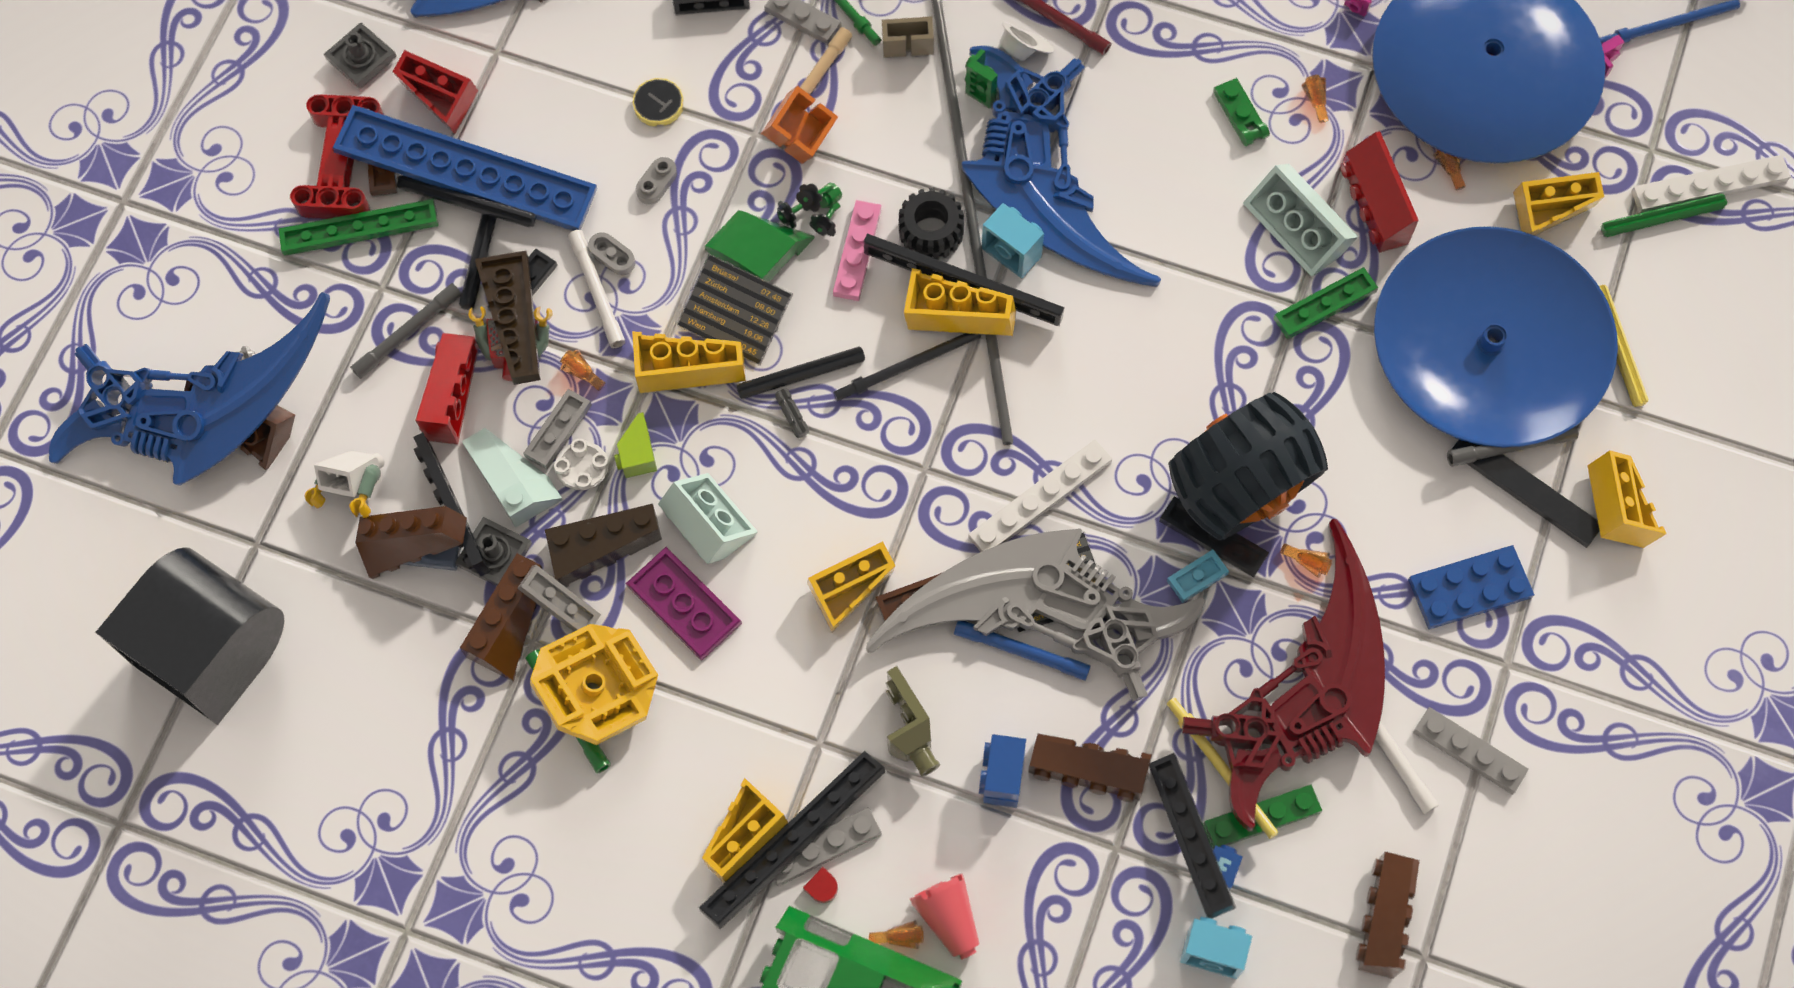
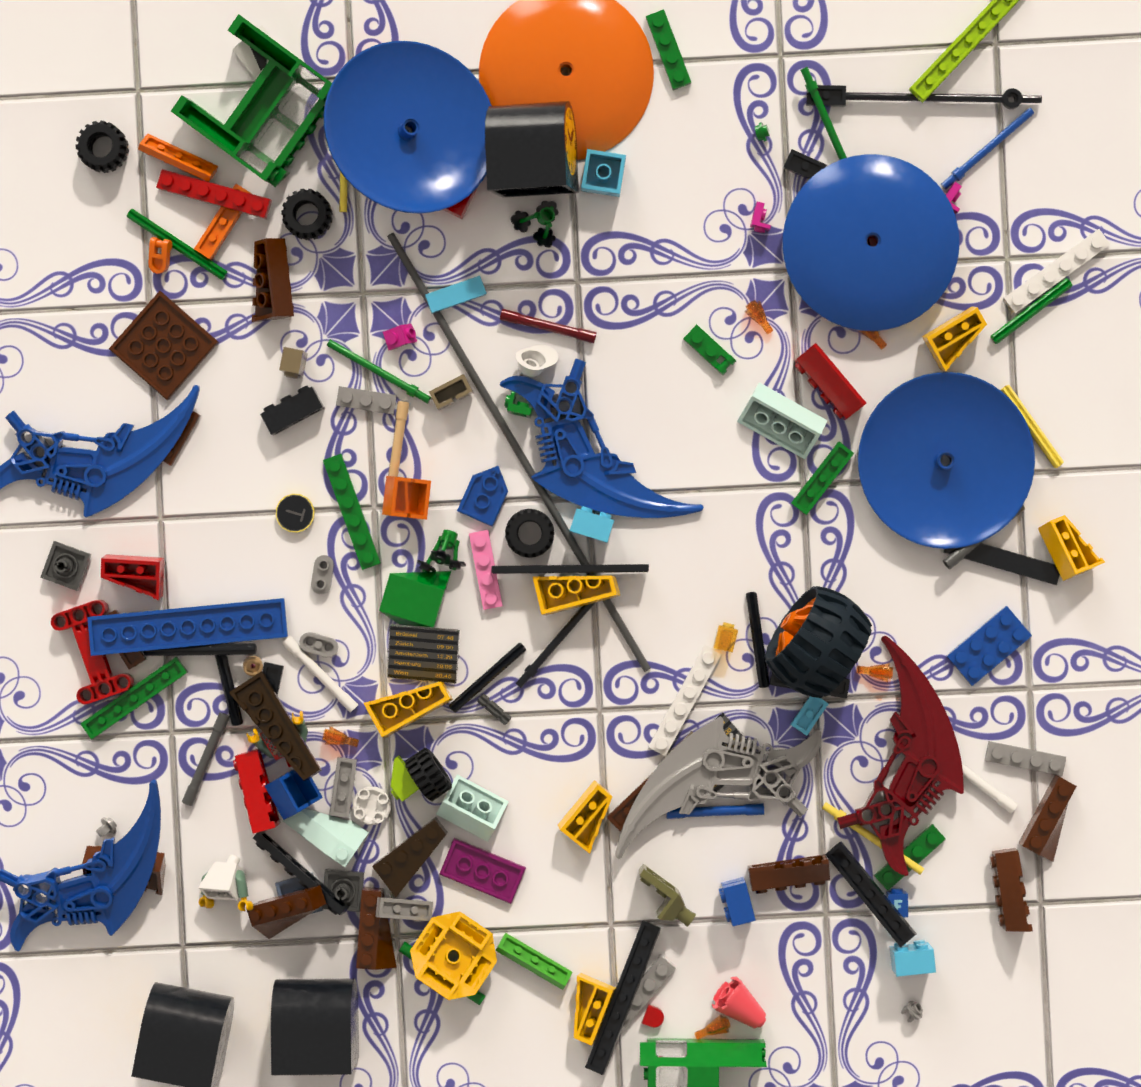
camera: 25 degrees left, 20 degrees up
(367, 690) = (314, 1027): none -> black brick
(492, 401) = (292, 793): none -> blue piece
(518, 243) = (252, 665): none -> tan tile
(671, 446) = (428, 774): none -> black tyre
(696, 743) = (534, 961): none -> bright green plate
(726, 127) = (351, 511): none -> green plate
(893, 169) = (484, 496): none -> blue tile
(1125, 439) = (725, 637): none -> clear yellow brick
(1167, 453) = (757, 638): none -> black axle
(1472, 847) = (1047, 822): none -> reddish brown wedge

